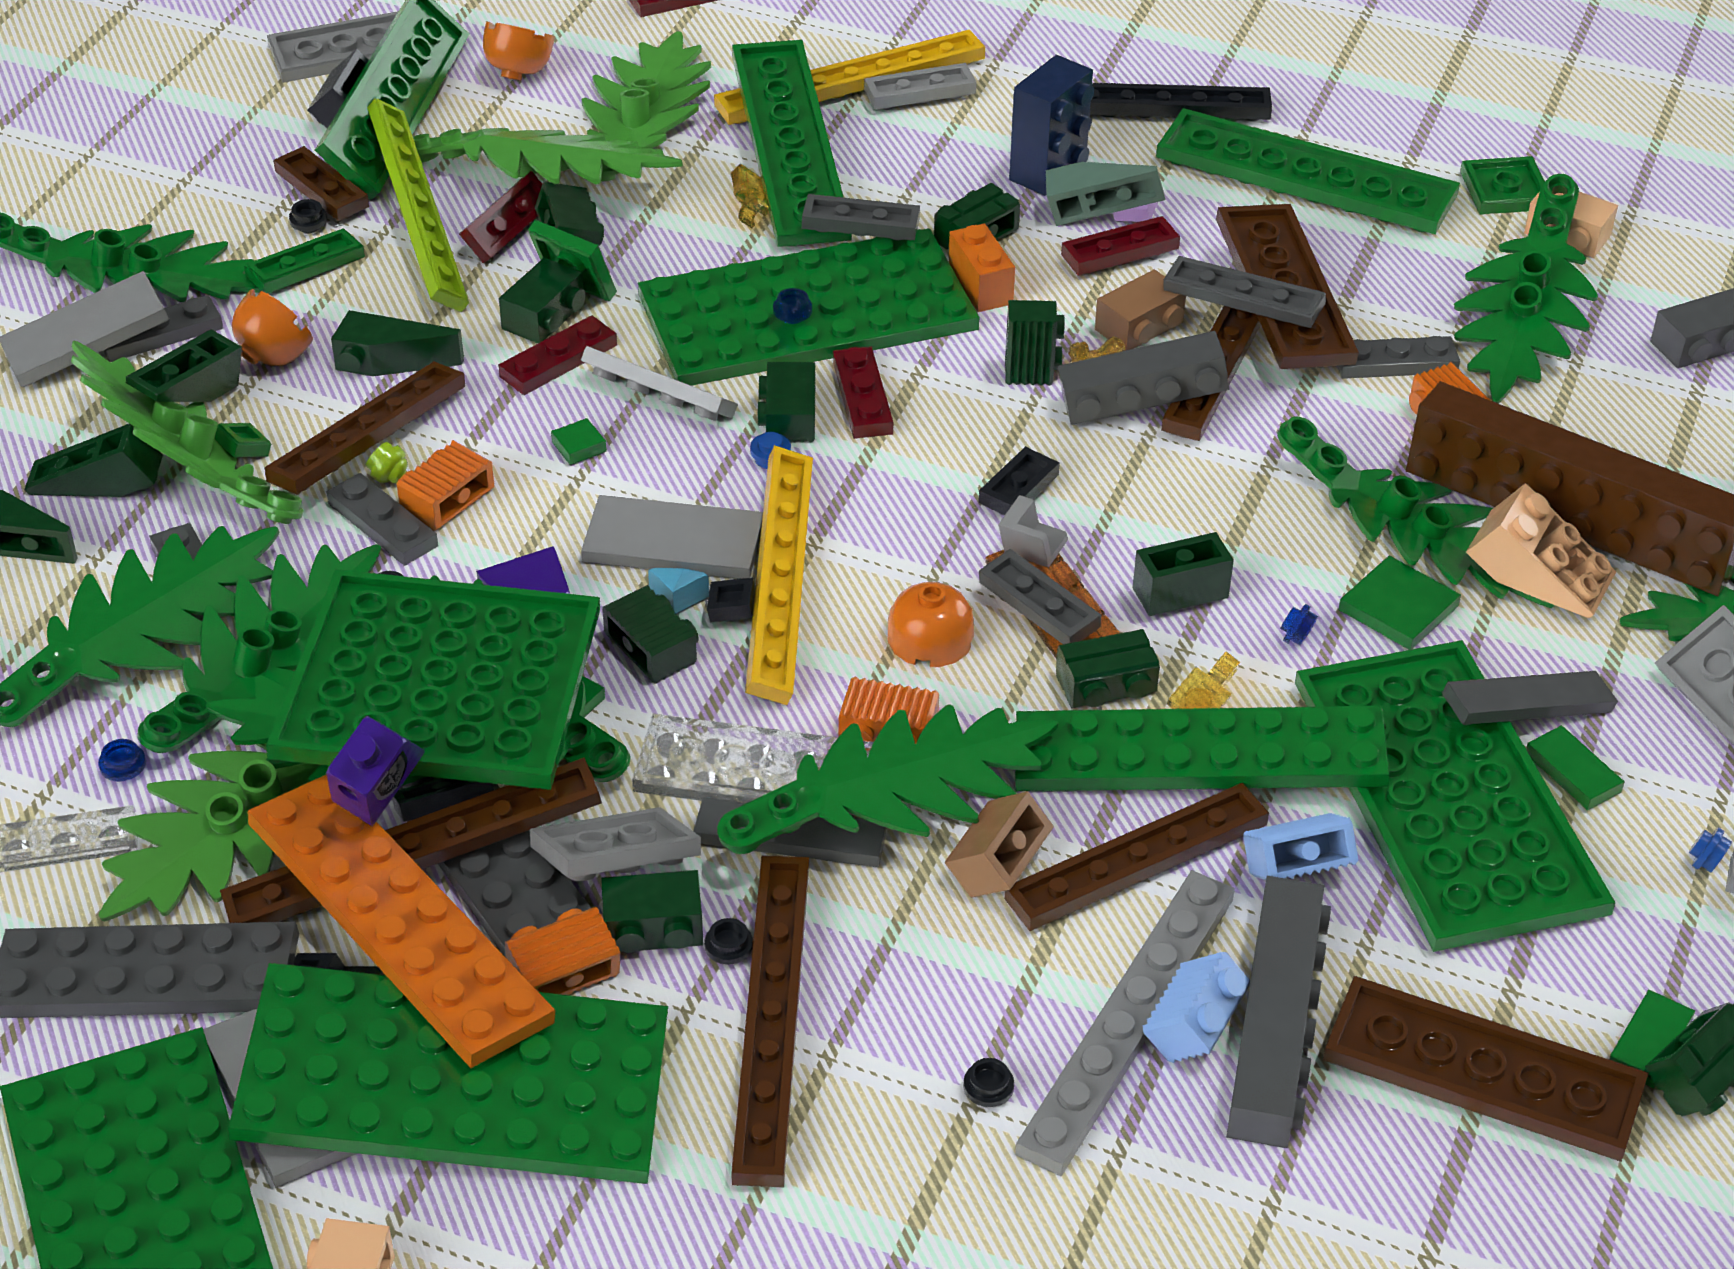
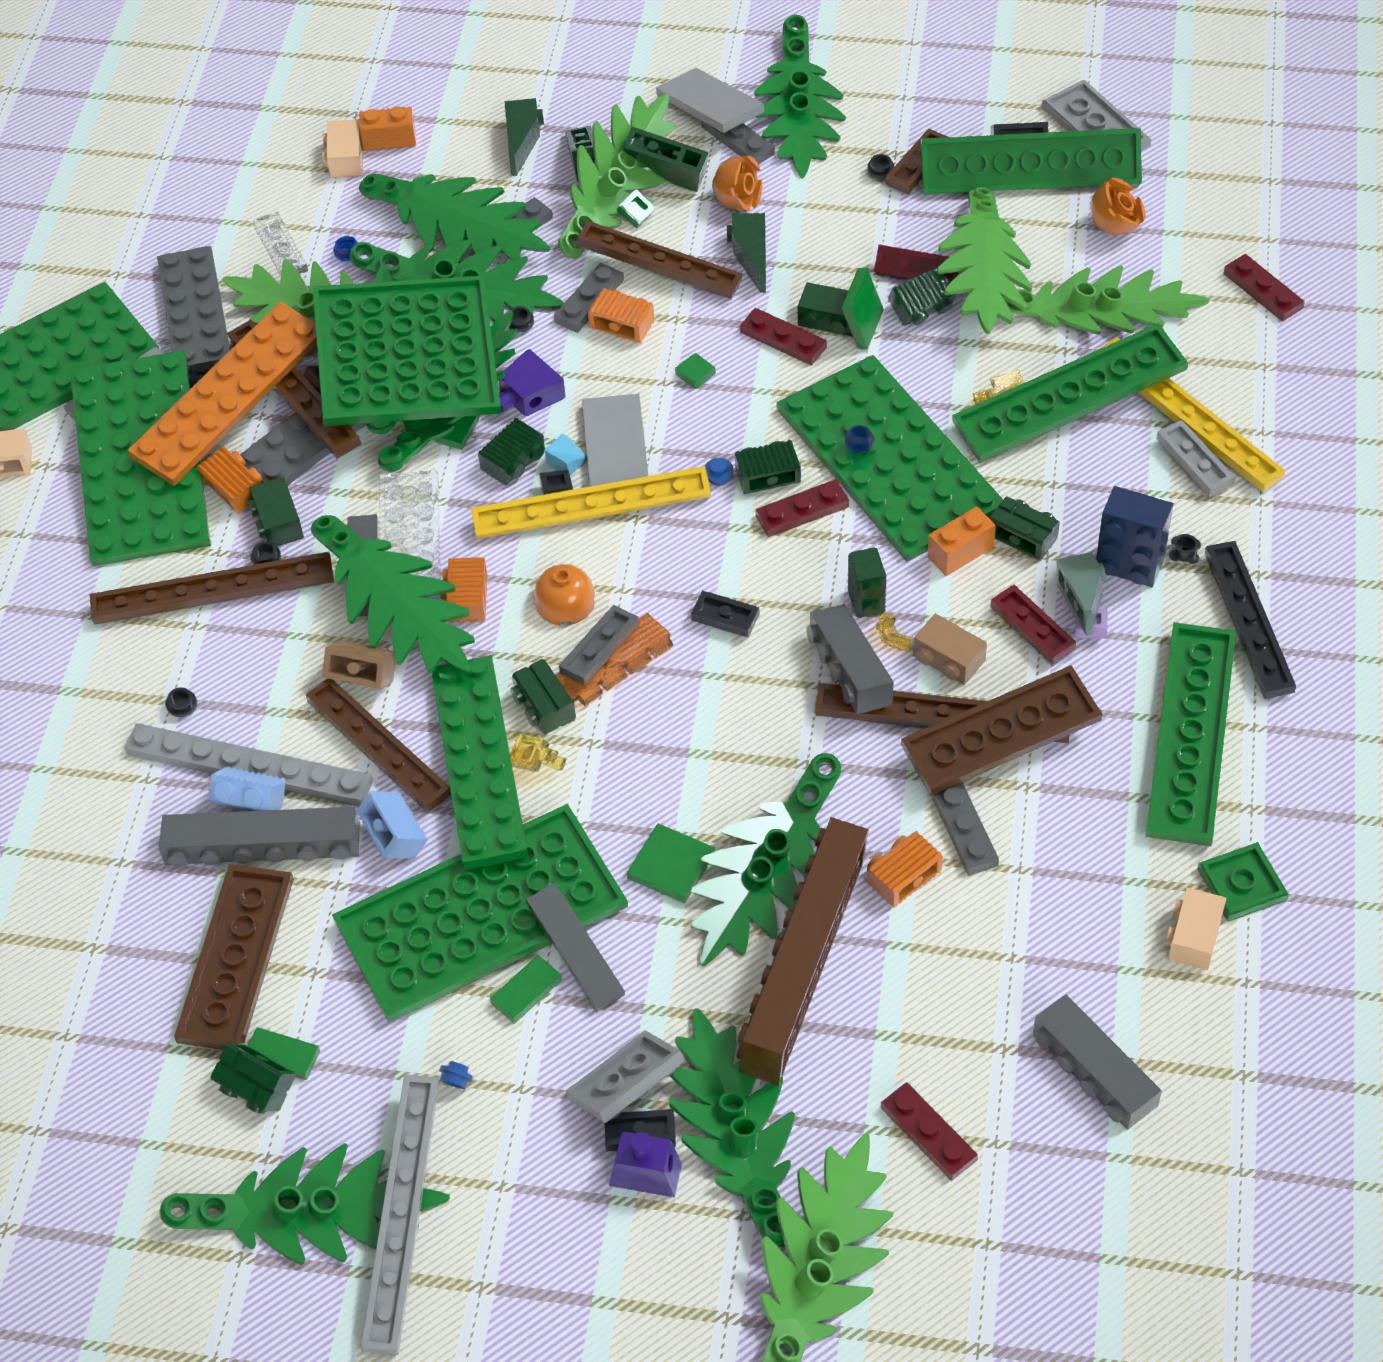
camera: 80 degrees right, 10 degrees up
(304, 261) = (832, 181): green tile -> none
(372, 767) = (293, 331): dark purple torso -> none
(387, 463) = (635, 282): lime plate -> none
(418, 206) = (902, 212): lime tile -> none
(615, 843) = (315, 476): light grey plate -> none
(672, 391) = (762, 393): plate -> none
(861, 217) = (980, 453): dark grey plate -> none
(1028, 537) = (658, 625): light grey panel -> none
(1182, 573) = (642, 719): dark green brick -> none
(1244, 291) = (965, 699): dark grey tile -> none
(1298, 624) = (620, 800): clear blue plate -> none
(1528, 294) = (1090, 905): green plant -> none
(1541, 554) = (732, 944): light nougat slope -> none

